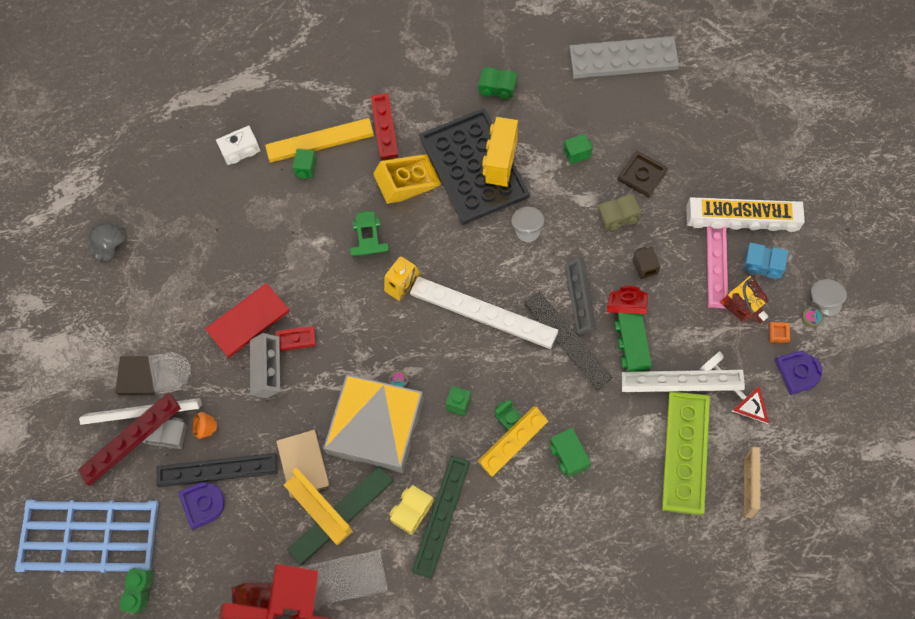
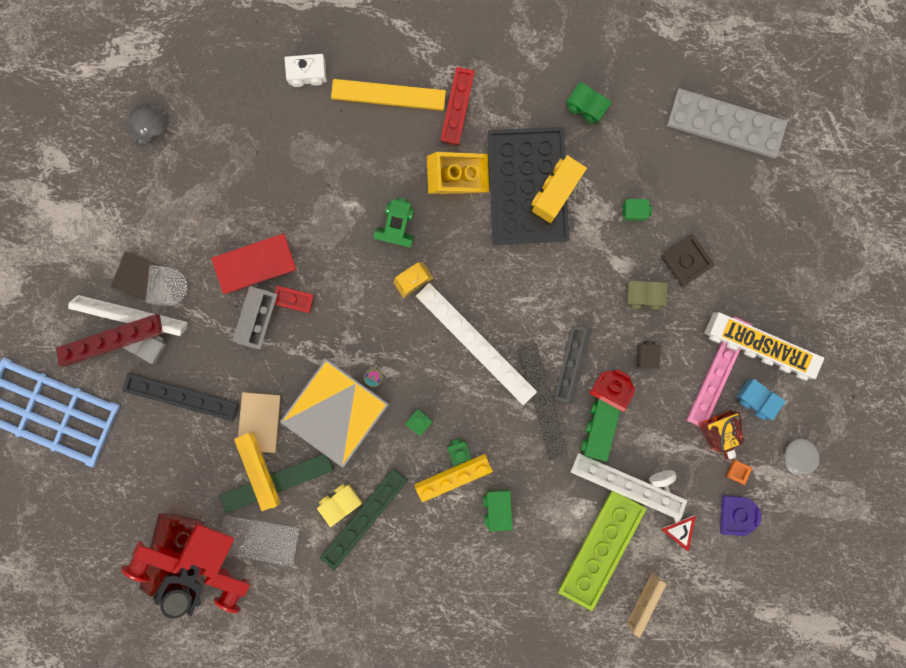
camera: 20 degrees right, 20 degrees up
(136, 595) = (76, 482): green brick -> none
(202, 503) = (158, 423): dark purple tile -> none
(203, 425) = (181, 352): orange cone -> none
(304, 163) = (364, 117): green brick -> none
(527, 223) = (555, 268): light grey piece -> none
(812, 317) = (776, 470): tile -> none

